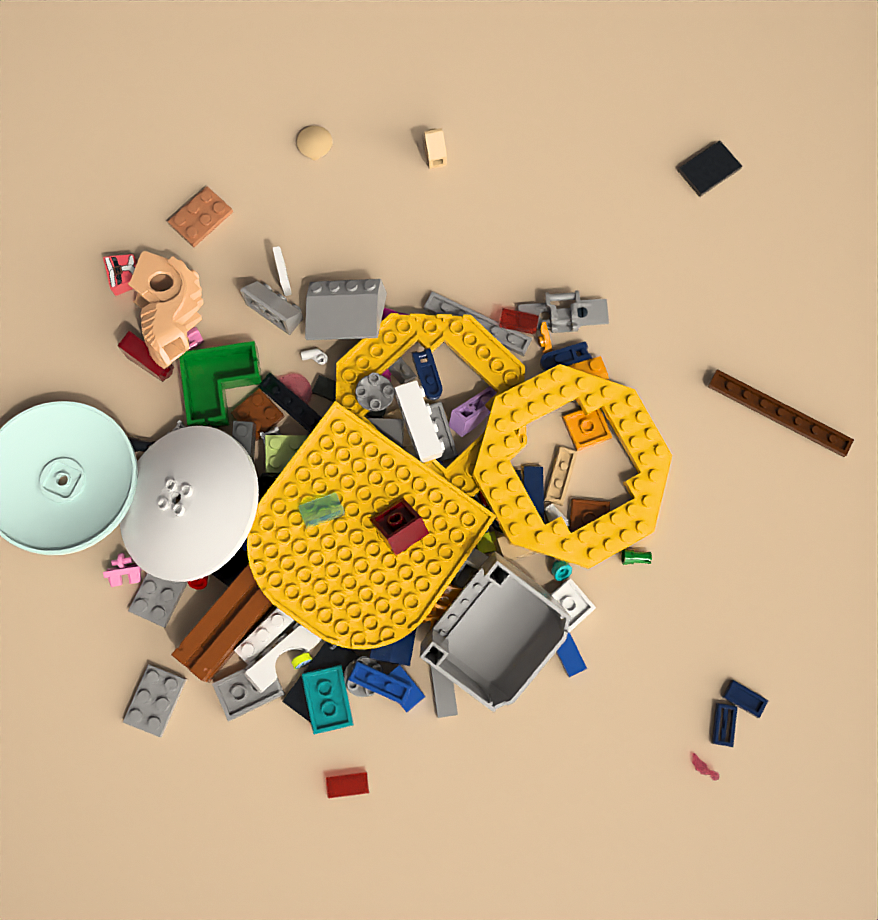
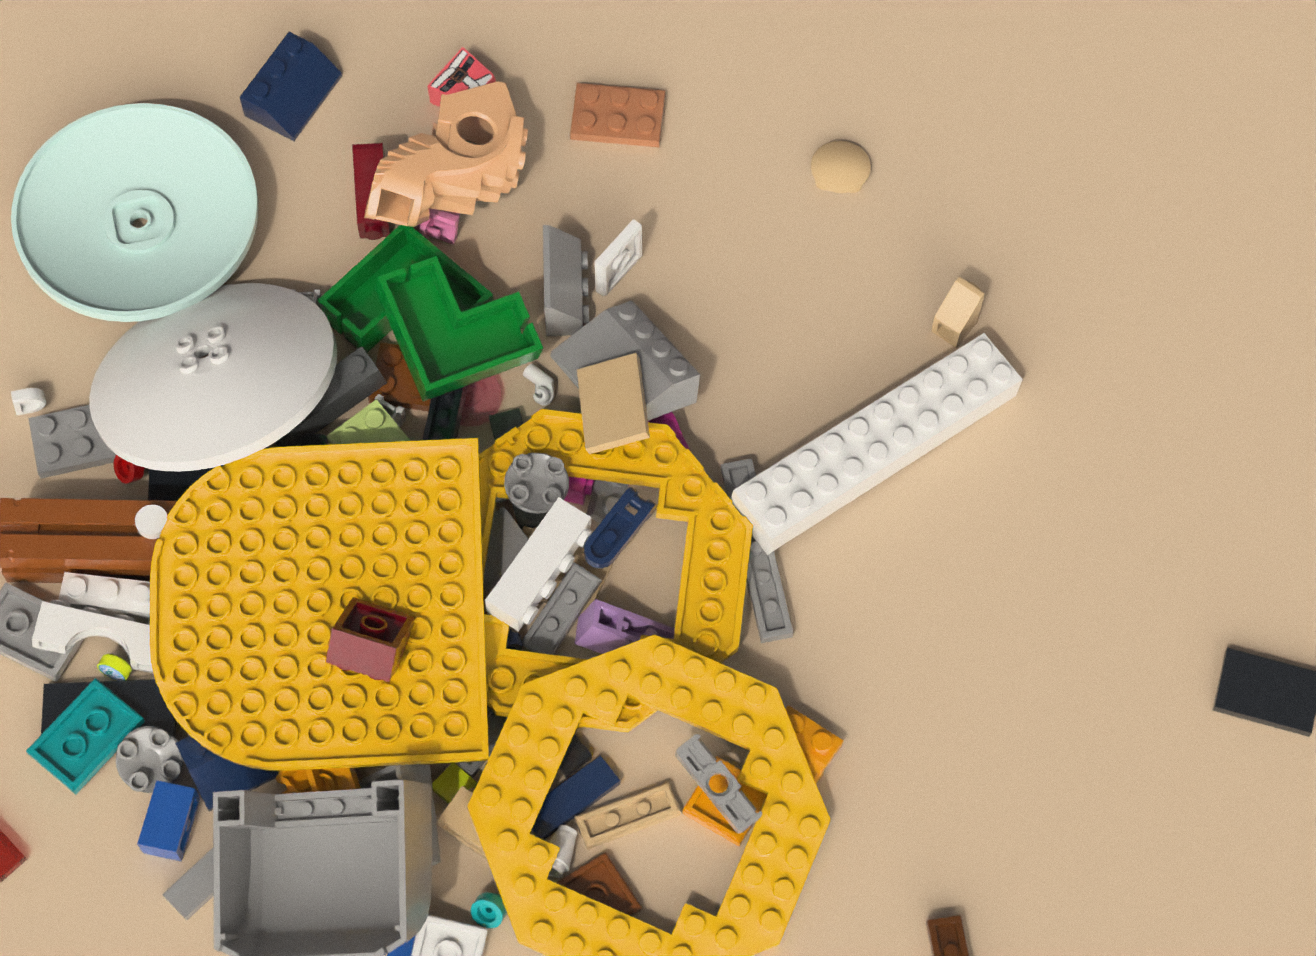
camera: 55 degrees right, 10 degrees down
(50, 354) = (290, 87): none -> dark blue slope
(114, 573) = (64, 367): bright pink hips -> none
(118, 604) = (28, 400): none -> white tile
(140, 445) = (251, 269): black pin -> none
(248, 587) = (151, 521): none -> white tile
(263, 381) = (451, 346): none -> green piece
(321, 510) = (316, 529): clear light blue panel -> none
(363, 328) = (613, 403): none -> tan tile
(380, 683) = (151, 781): blue tile -> none
(471, 232) = (875, 443): none -> white brick
(519, 321) = (801, 597): clear red tile -> none
(544, 339) = (806, 652): light orange piece -> none
(565, 356) = (806, 696): dark blue plate -> none
(569, 319) = (858, 657): light grey piece -> none
(599, 424) = (702, 766): none -> light grey piece

